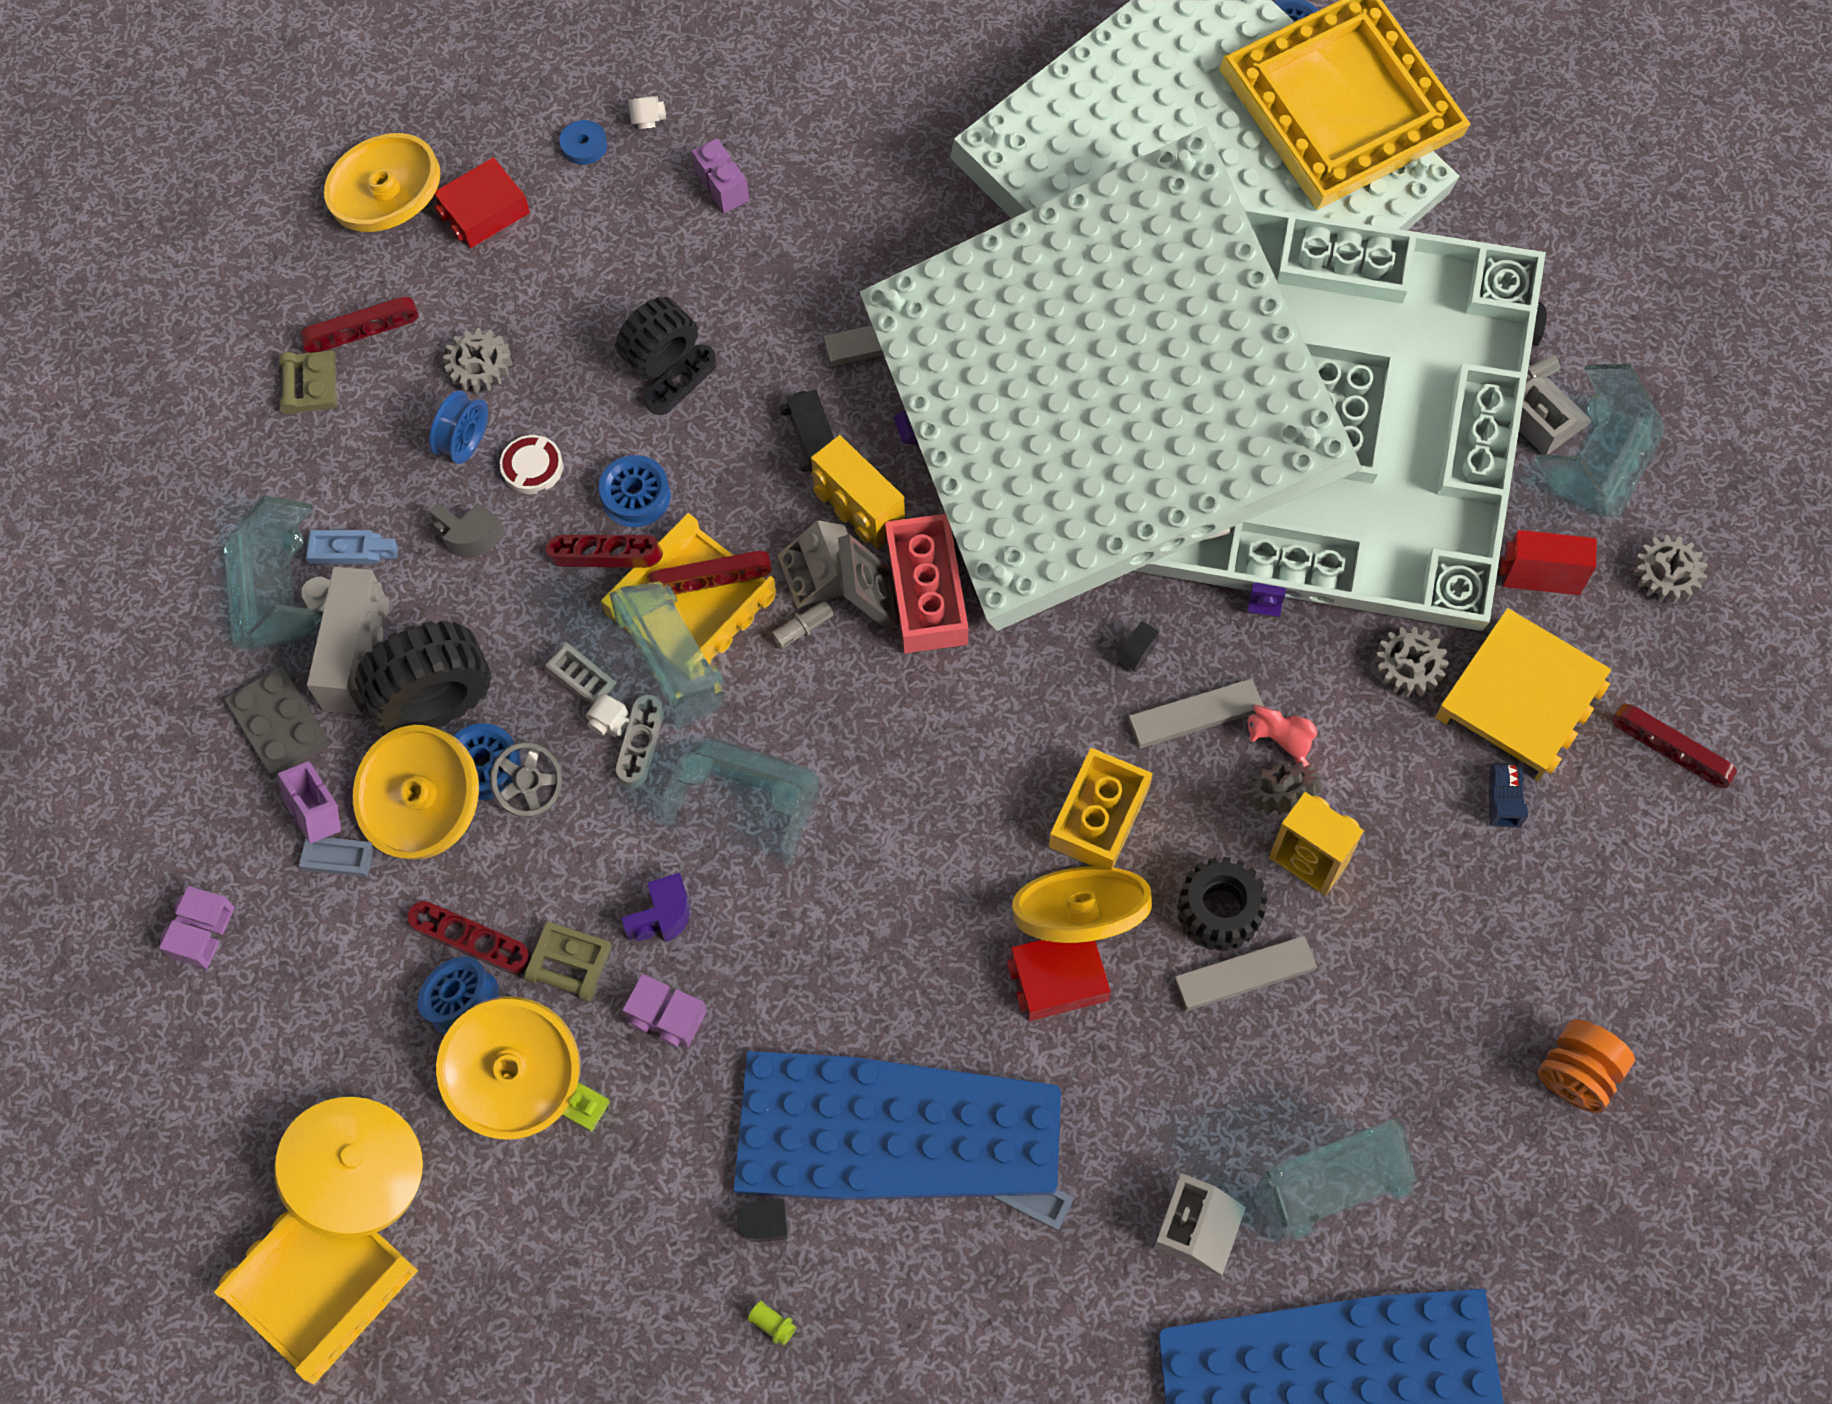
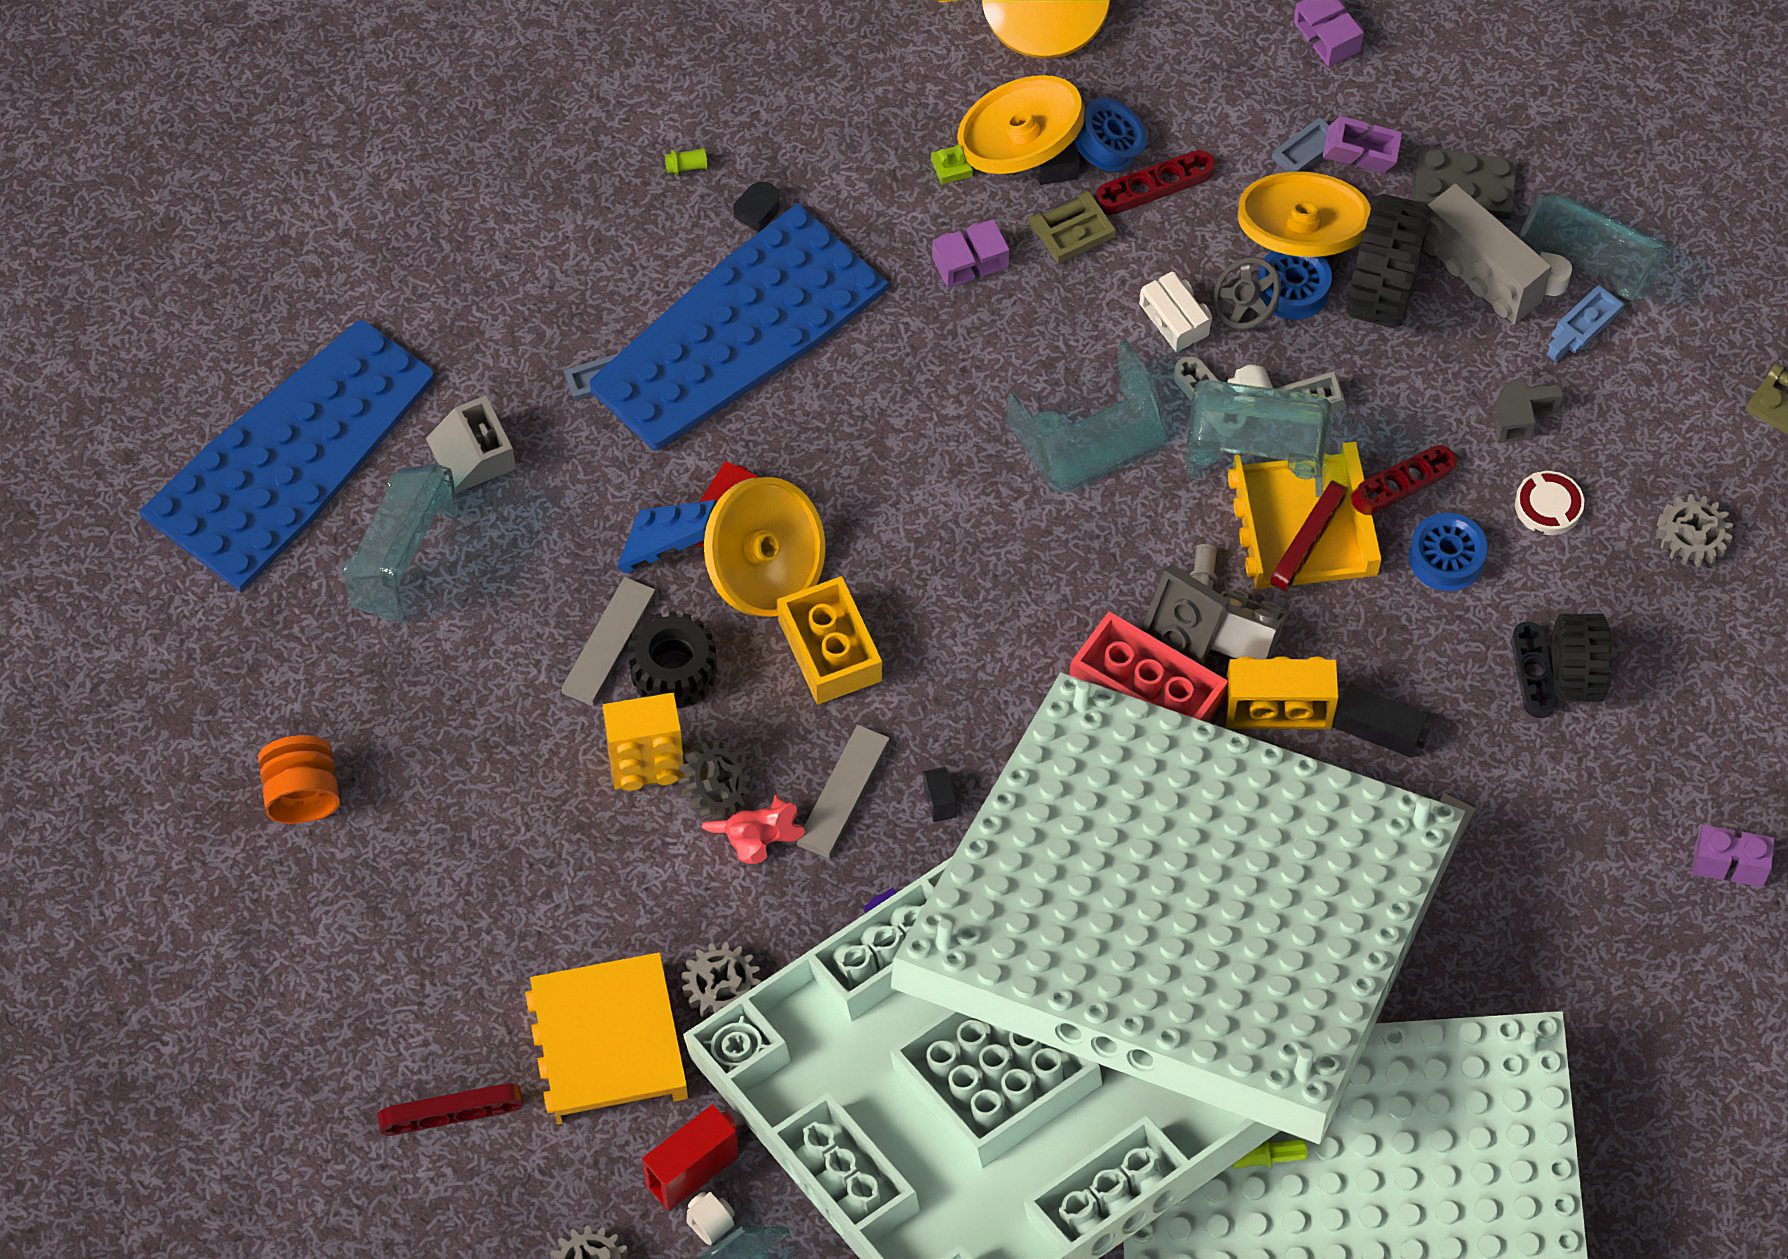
camera: 130 degrees right, 5 degrees down
(458, 426) = (1625, 457): blue wheel -> none
(586, 819) = (1175, 311): none -> white brick
(669, 912) = (1047, 311): dark purple brick -> none
(1128, 999) = (663, 529): none -> blue wing
(1506, 796) = (542, 942): dark blue leg -> none
(1563, 524) = (709, 1217): none -> white plate

